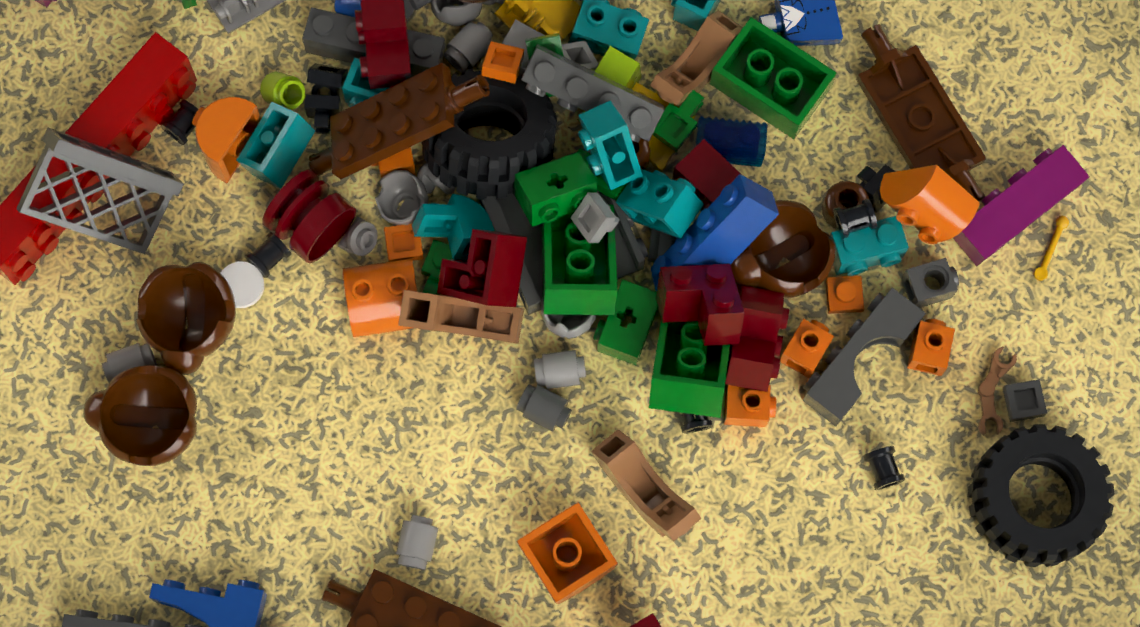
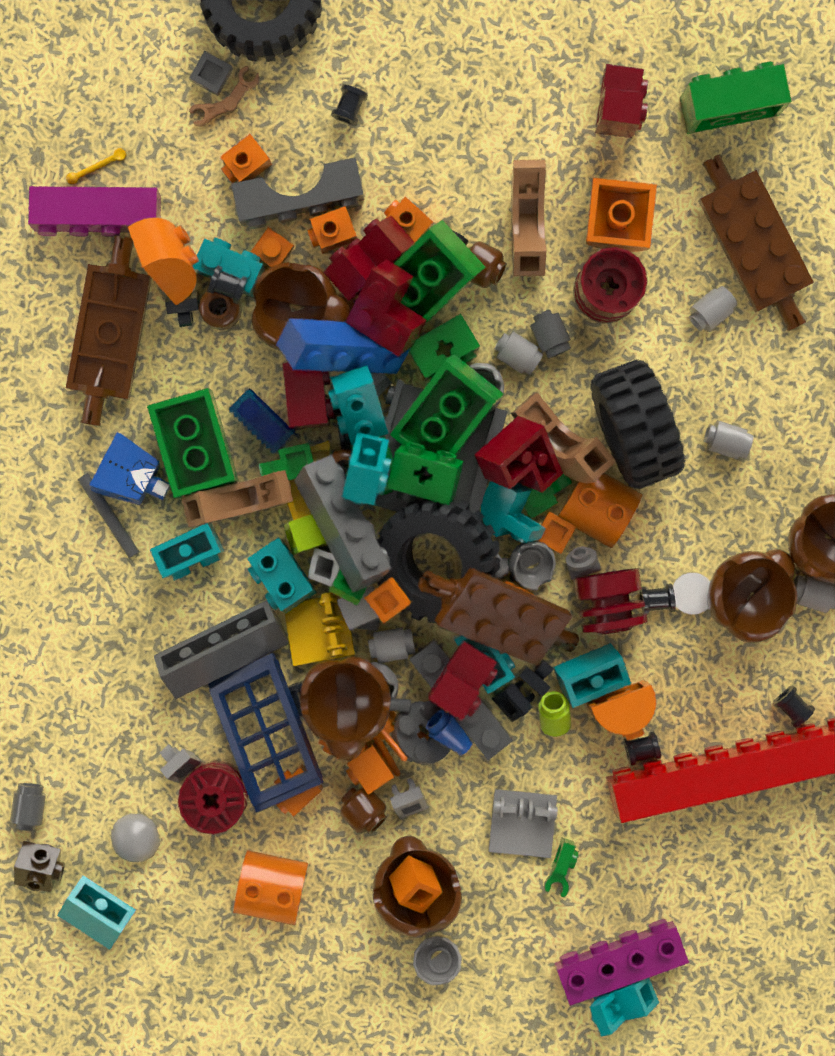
camera: 135 degrees left, 15 degrees up
(74, 255) = (794, 706): none -> black bush
(103, 162) = (731, 740): dark grey fence -> none
(311, 438) = (728, 440): none -> light grey brick
(405, 370) = (638, 424): none -> black tyre
(530, 463) = (622, 272): none -> dark red wheel
(594, 218) = (417, 428): light grey tile -> none
(651, 424) = (493, 262): none -> reddish brown head
(918, 291) = (216, 216): dark grey brick -> none

